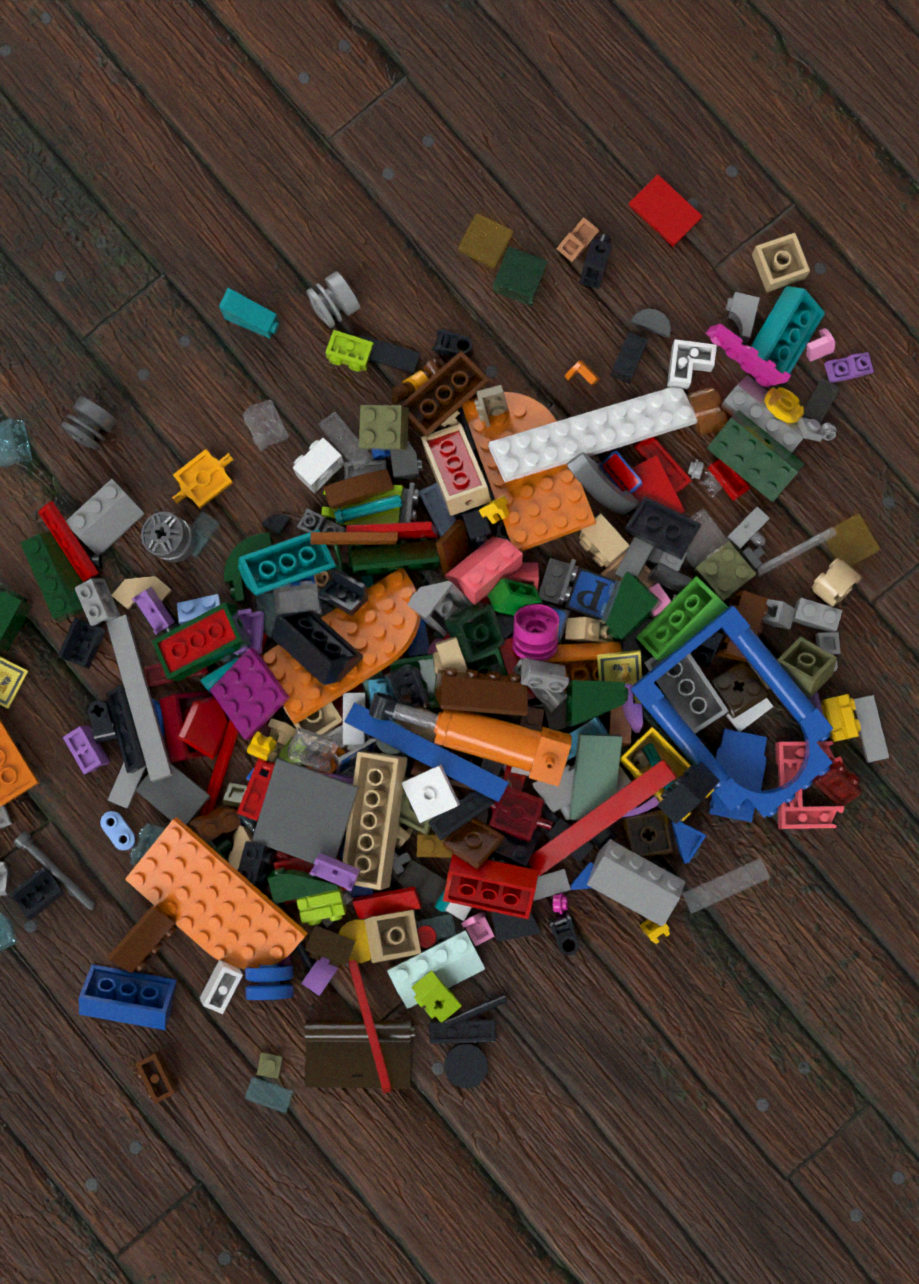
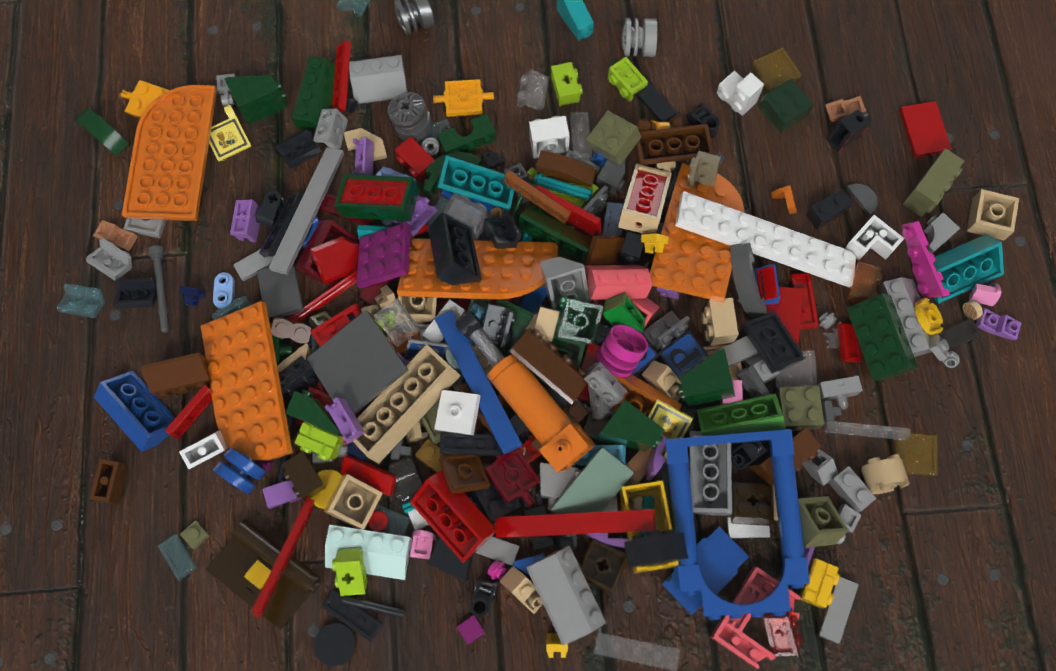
camera: 35 degrees right, 10 degrees down
(92, 856) = (192, 295): none -> clear blue tile
(180, 963) = (190, 412): none -> red tile
(202, 575) = (413, 158): none -> red brick
(212, 553) = (434, 149): none -> light grey plate
(230, 534) = (482, 134): none -> dark green arch
(261, 746) = (364, 297): yellow tile -> none
(299, 406) = (565, 83): none -> lime brick
(355, 1057) = (258, 574): none -> yellow tile
(467, 292) = (740, 92): none -> white brick
(573, 969) = (470, 630): none -> magenta tile
(593, 904) = (522, 589): none -> tan slope
(687, 840) = (630, 591): blue slope -> none
(709, 267) = (934, 183): none -> olive brick
(818, 369) = (972, 309): none -> tan tile

